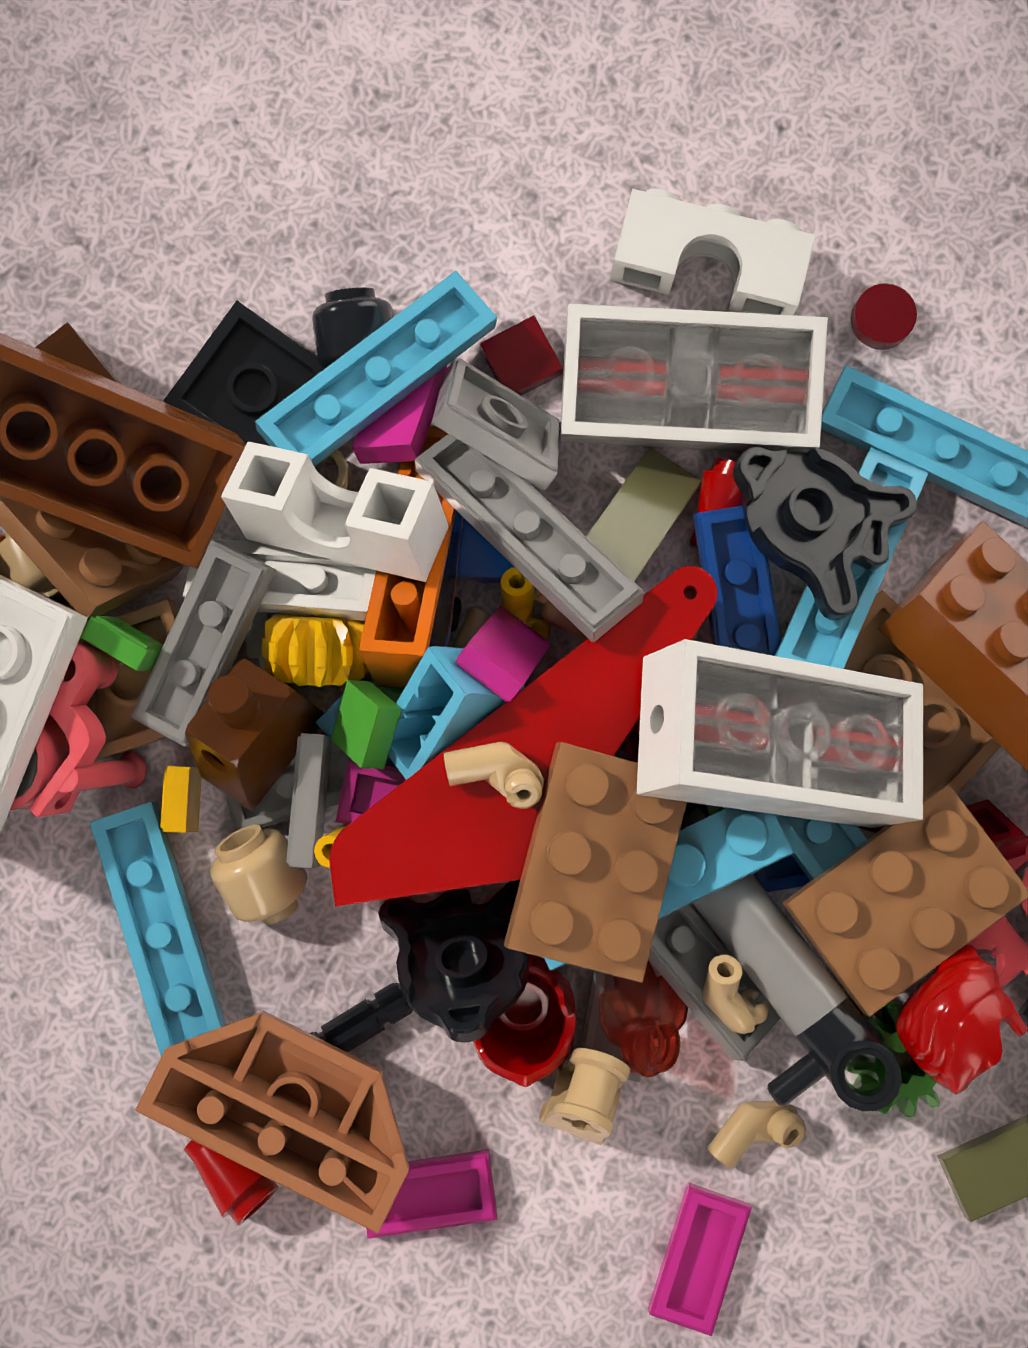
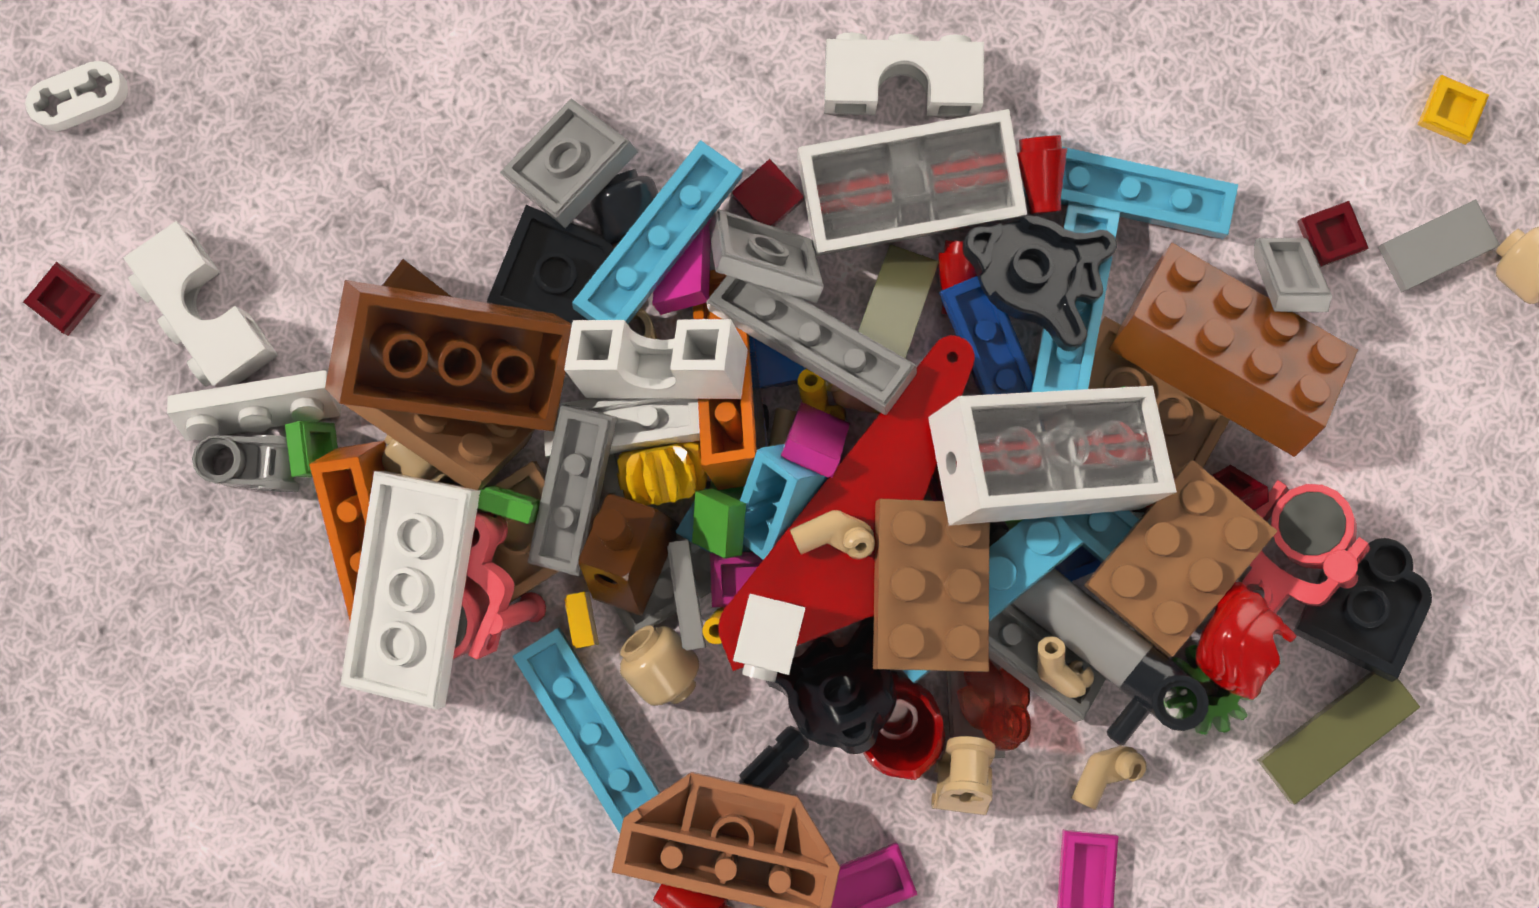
camera: 10 degrees left, 0 degrees up
(299, 263) = (569, 162): none -> light grey tile
(384, 877) = (768, 637): none -> white brick
(849, 402) = (1042, 172): none -> red cone
(883, 316) = (1054, 91): dark red tile -> none

